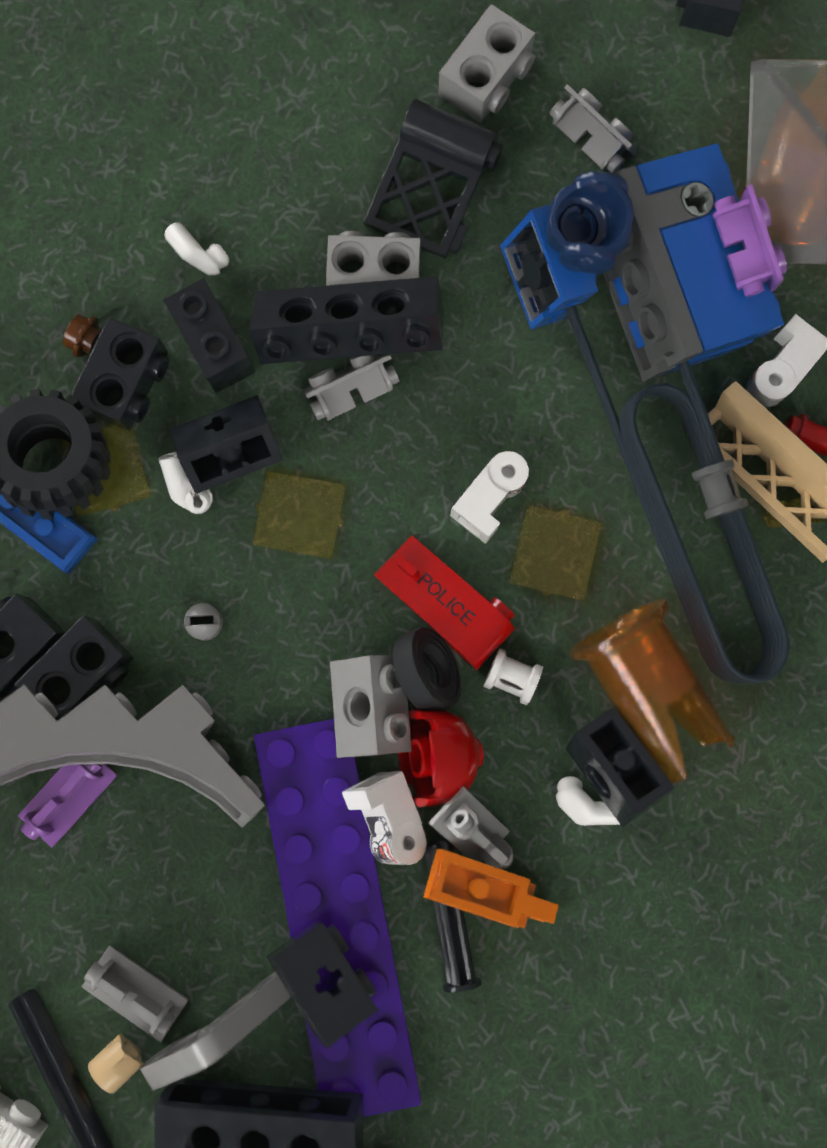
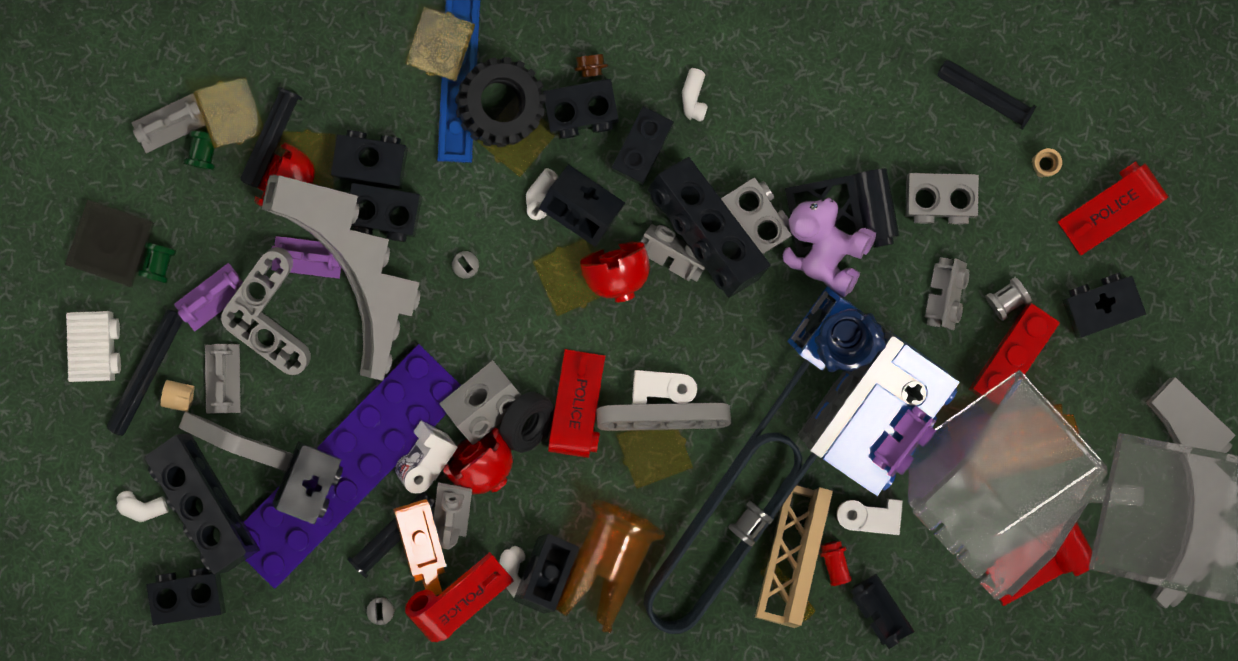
camera: 60 degrees right, 5 degrees up
(32, 941) = (209, 297): none -> medium lavender hinge
(78, 900) = (253, 310): none -> light grey beam
(328, 455) = (617, 272): none -> red cylinder
(426, 203) = (816, 224): none -> lavender animal
(513, 676) = (559, 476): white bush -> none
(524, 514) = (663, 416): none -> light grey beam
(534, 983) = (387, 611): none -> light grey hinge
(587, 923) = (443, 614): none -> red door
(643, 69) = (1008, 298): none -> light grey bush
(708, 91) = (1017, 348): none -> red brick

